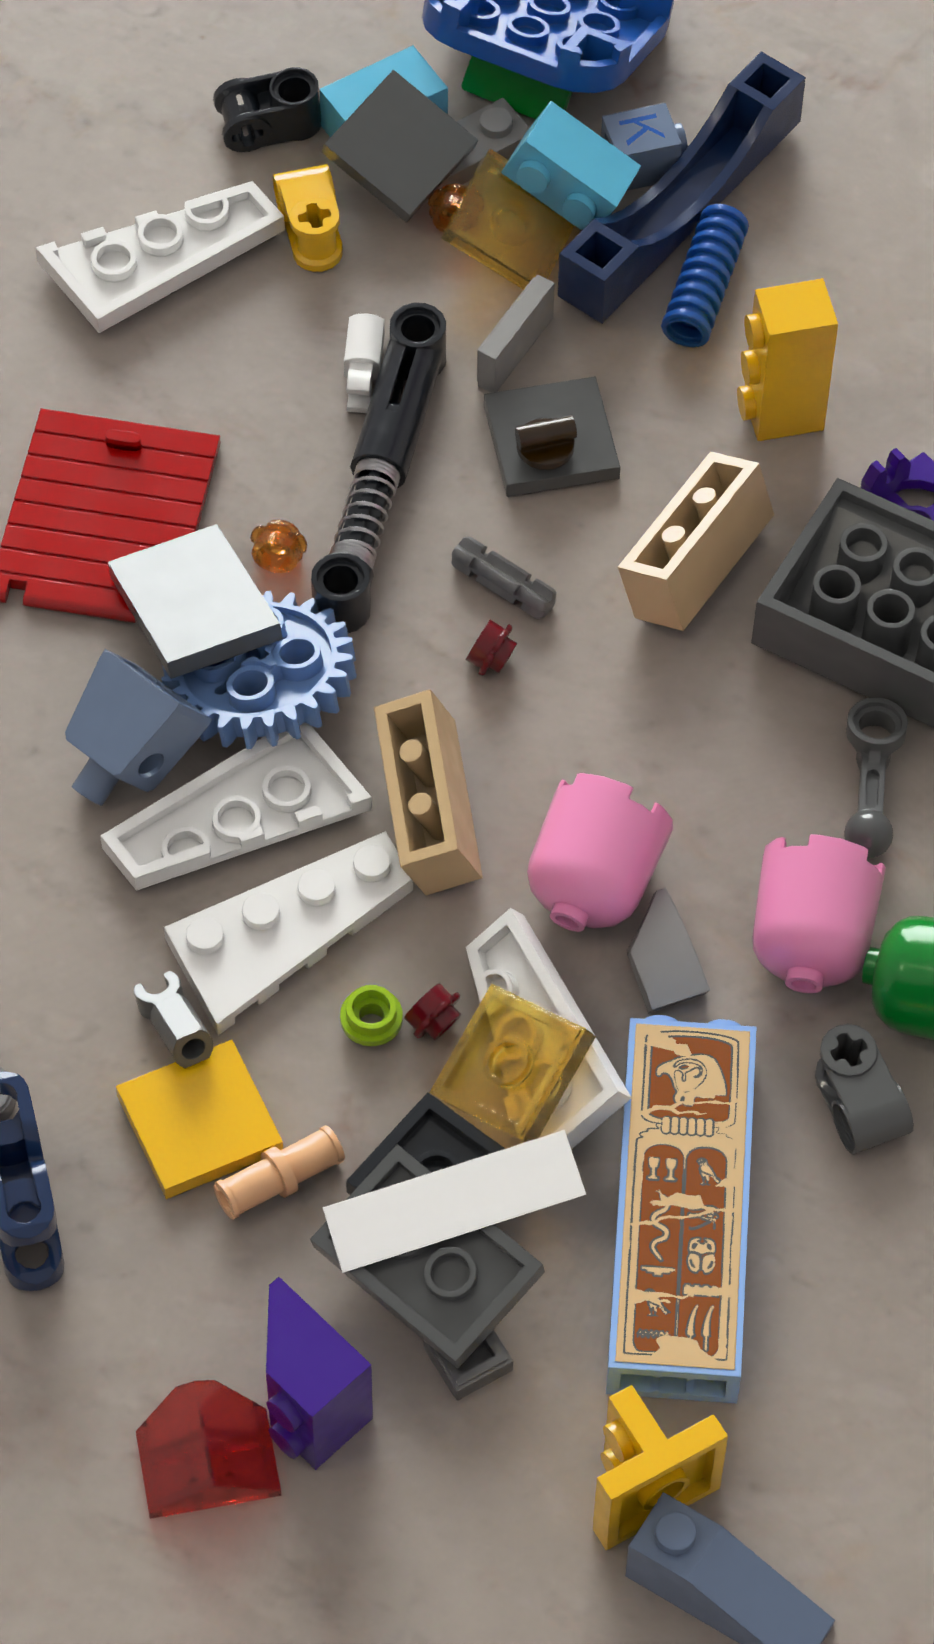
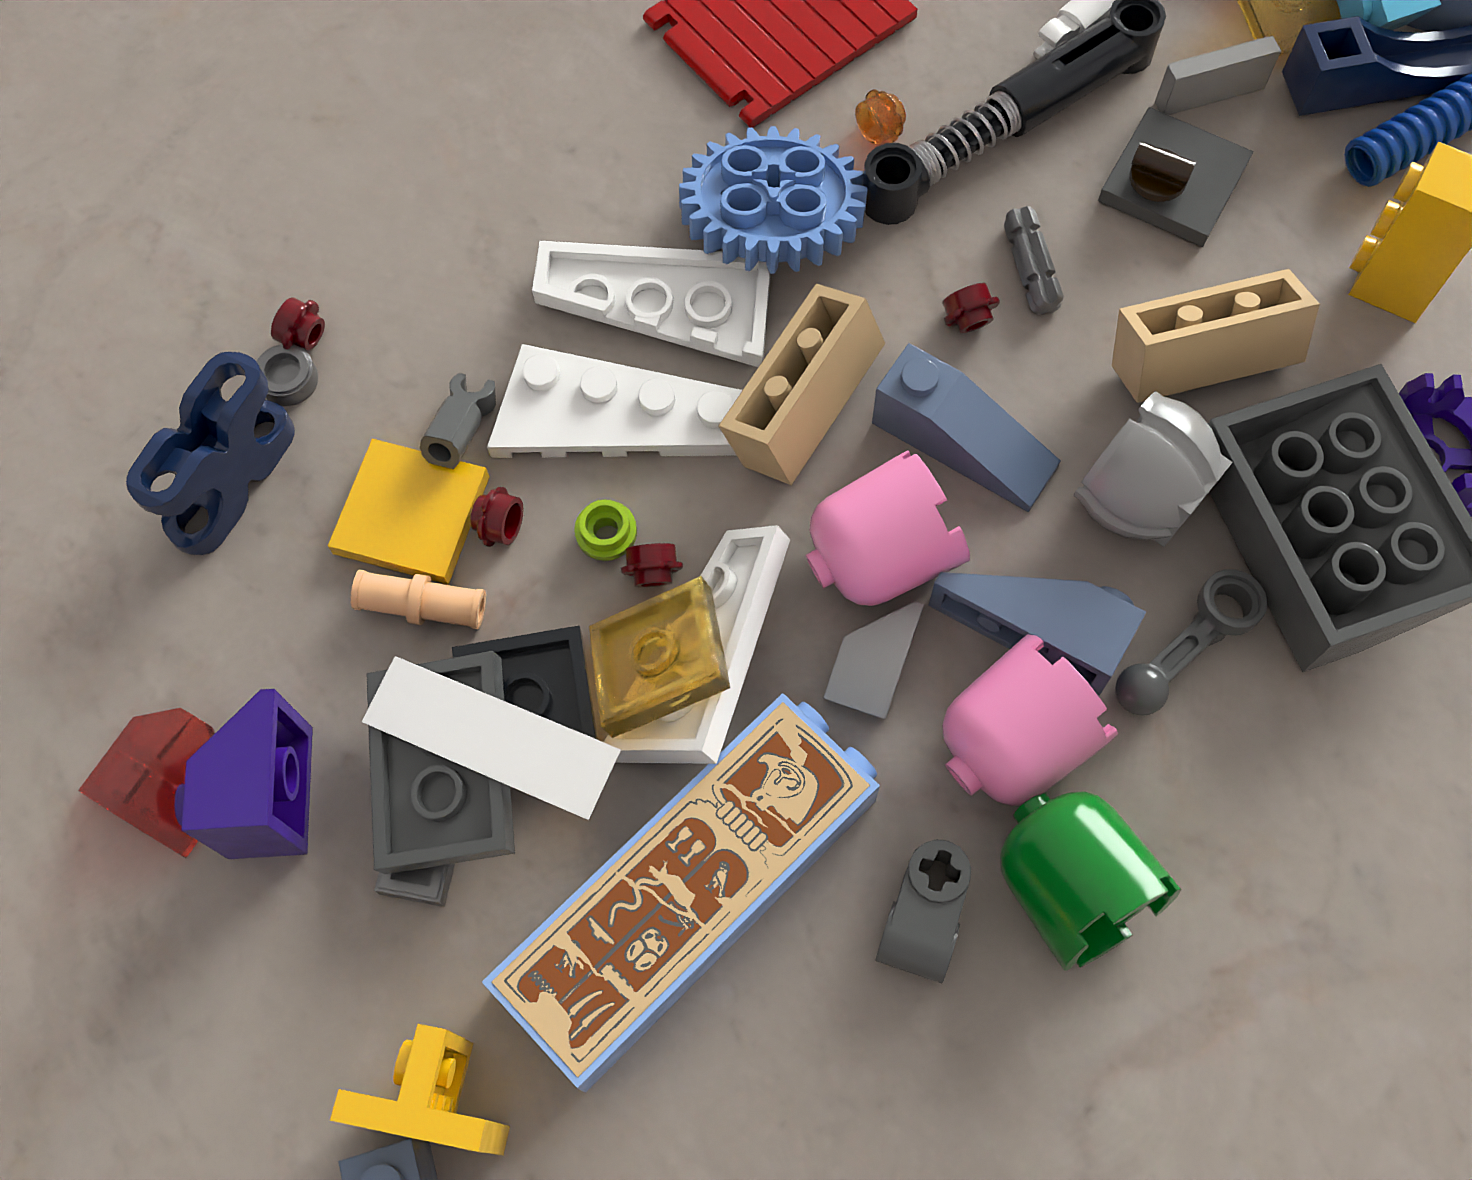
camera: 45 degrees right, 10 degrees up
(129, 728) = (631, 171): sand blue torso -> none
(194, 601) = (767, 112): tile -> none
(278, 1068) = (497, 517): none -> dark red plate
(556, 738) = (961, 427): none -> sand blue slope
(734, 841) = (1072, 617): none -> sand blue slope
(747, 670) = (1153, 472): none -> light grey piece

